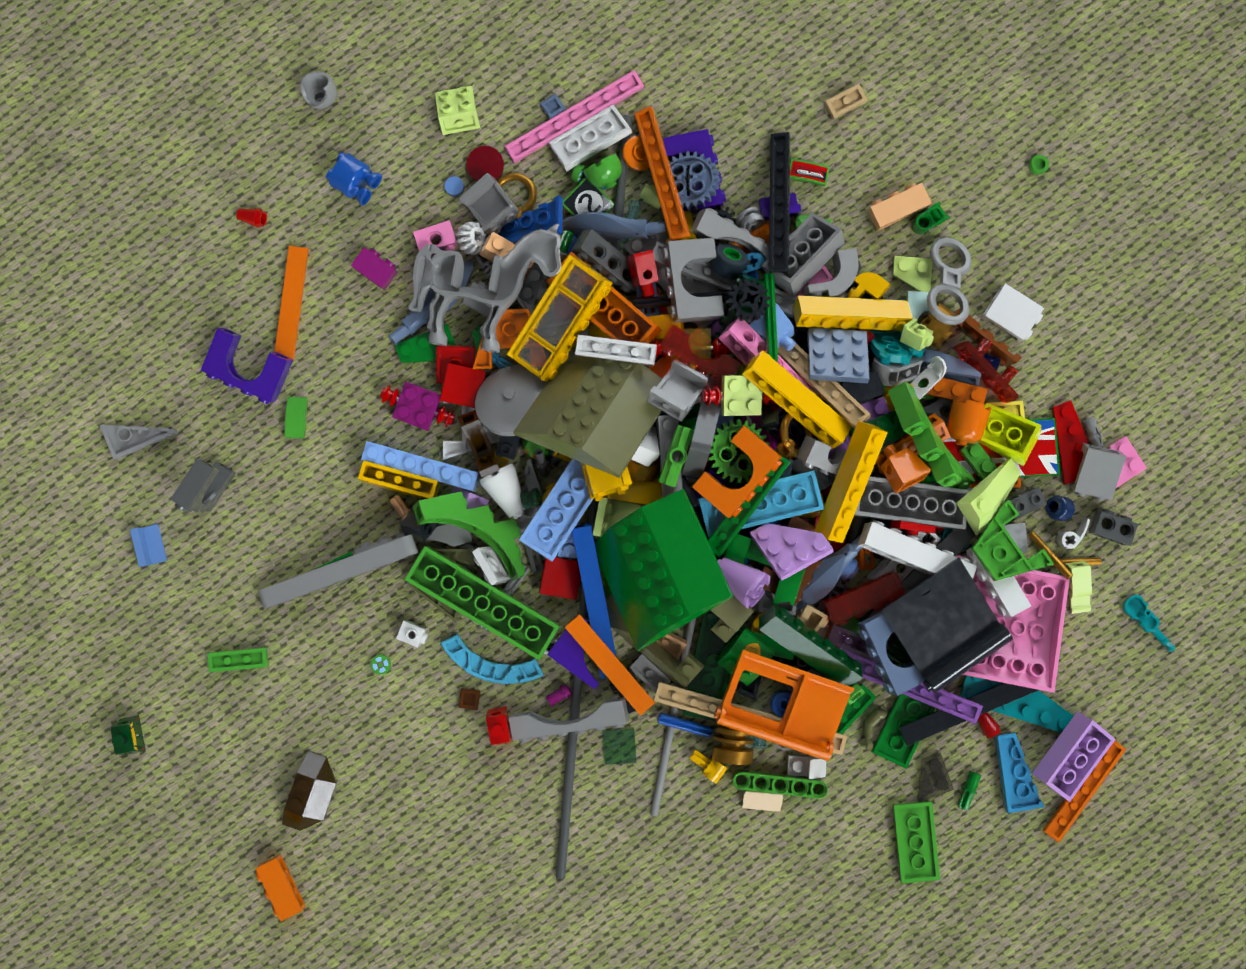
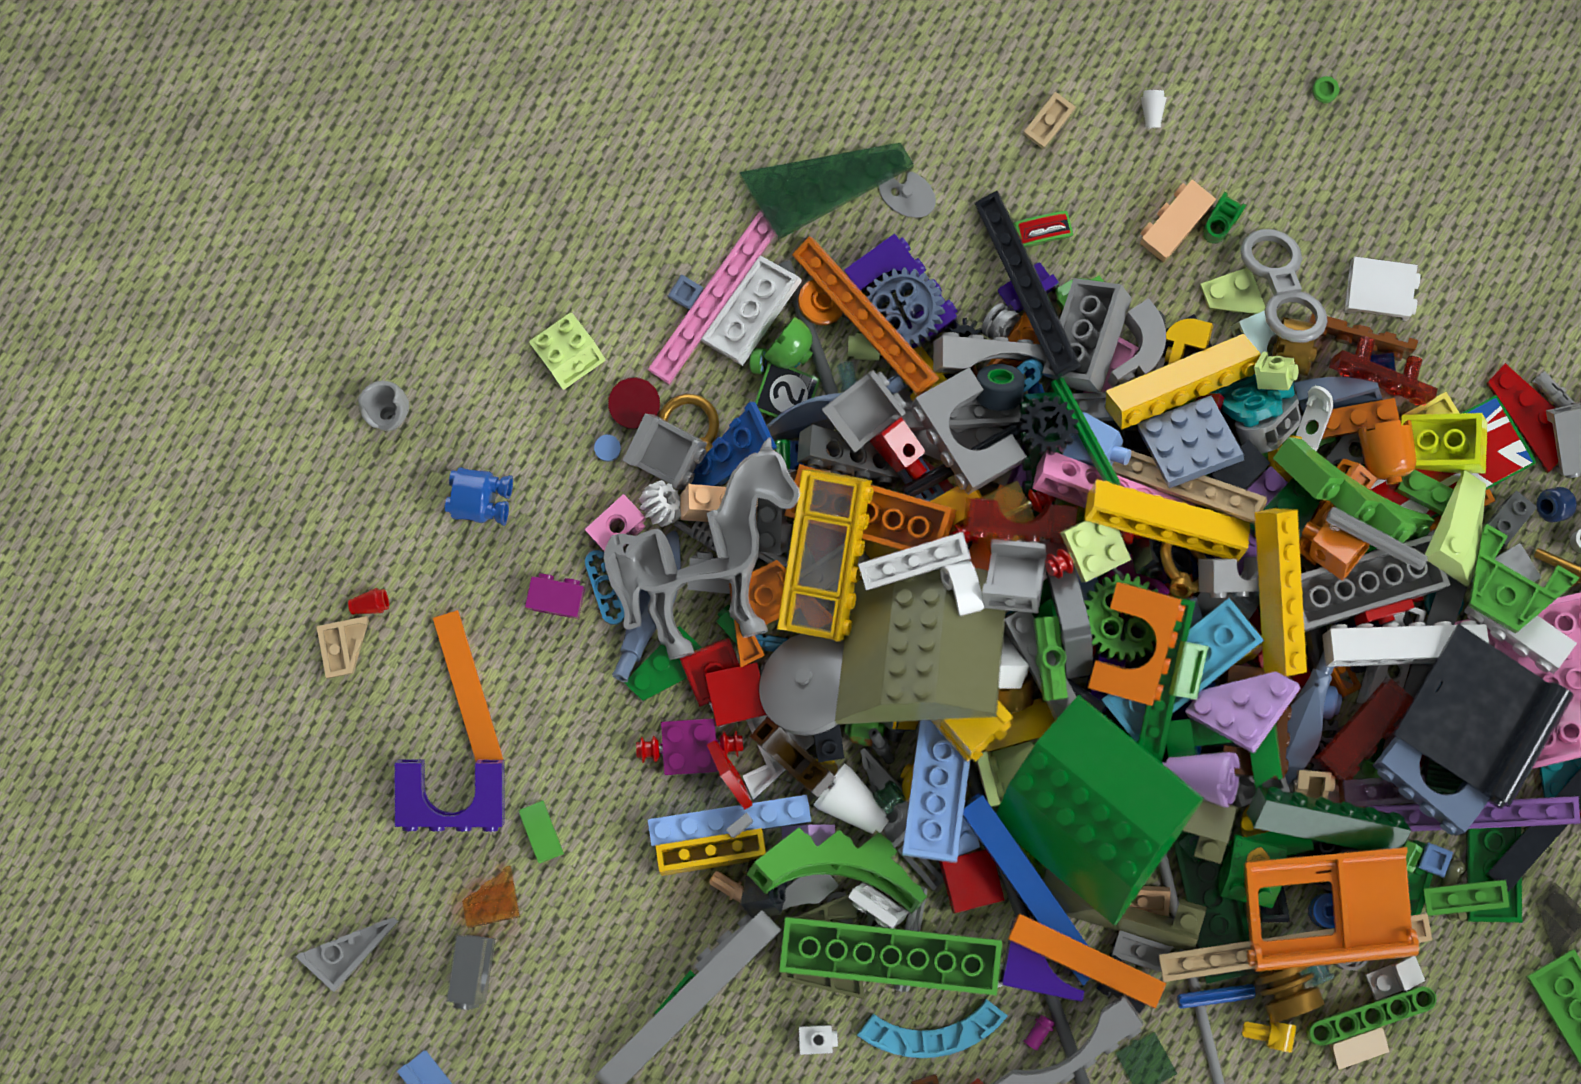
camera: 15 degrees left, 5 degrees down
(221, 236) = (341, 645): none -> tan wing
(244, 448) = (493, 901): none -> clear orange wing
(406, 262) = (603, 608): none -> dark azure beam
(423, 472) = (740, 825): none -> light grey tile
(433, 436) = (730, 774): none -> red tile
(630, 234) = (864, 409): none -> light grey panel
(641, 383) = (966, 587): none -> white panel
(664, 74) = (808, 189): none -> clear green wing
(734, 111) = (914, 199): none -> light grey piece
(764, 505) = (1188, 670): none -> tile
(869, 702) = (1435, 859): none -> medium blue tile
(877, 737) = (1466, 897): none -> bright green plate
(919, 123) = (1153, 107): none -> white cone
(932, 476) = (1377, 538): none -> light grey axle

